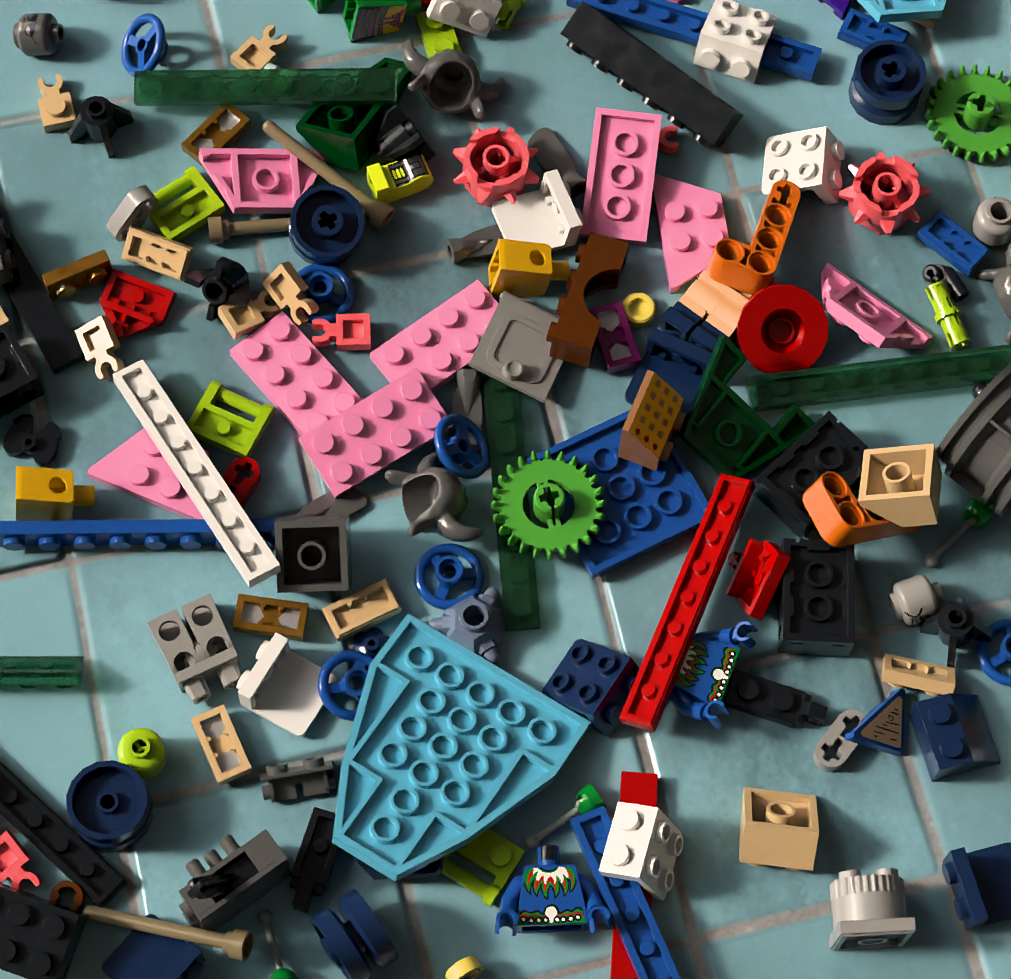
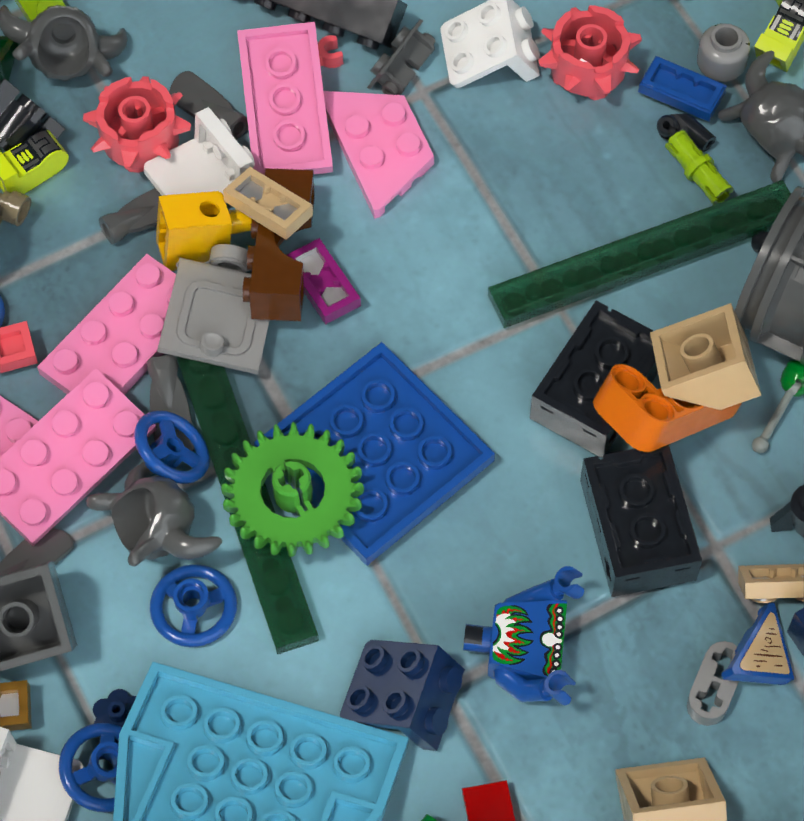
camera: 10 degrees left, 5 degrees down
(361, 610) = (95, 672): tan plate -> none
(474, 624) = (238, 654): sand blue rock -> none
(543, 299) = (229, 257): none -> light grey tile
(585, 264) = (268, 203): none -> tan piece
(639, 309) = (344, 244): light yellow tile -> none
(651, 423) = (391, 363): slope -> none
(673, 361) = (400, 307): dark blue bracket -> none
(687, 603) = (488, 567): red tile -> none
(705, 312) = (427, 228): light nougat hips -> none
(715, 168) = (411, 48): none -> dark grey hinge
(727, 428) = (481, 350): dark green wing -> none
(753, 265) = (460, 161): orange beam -> none
(756, 575) = (562, 511): red slope -> none
(773, 701) = (622, 656): black hinge -> none
(782, 328) = (514, 221): red piece -> none
(867, 314) = (608, 186): bright pink wing -> none
(915, 599) = (757, 493): light grey head -> none

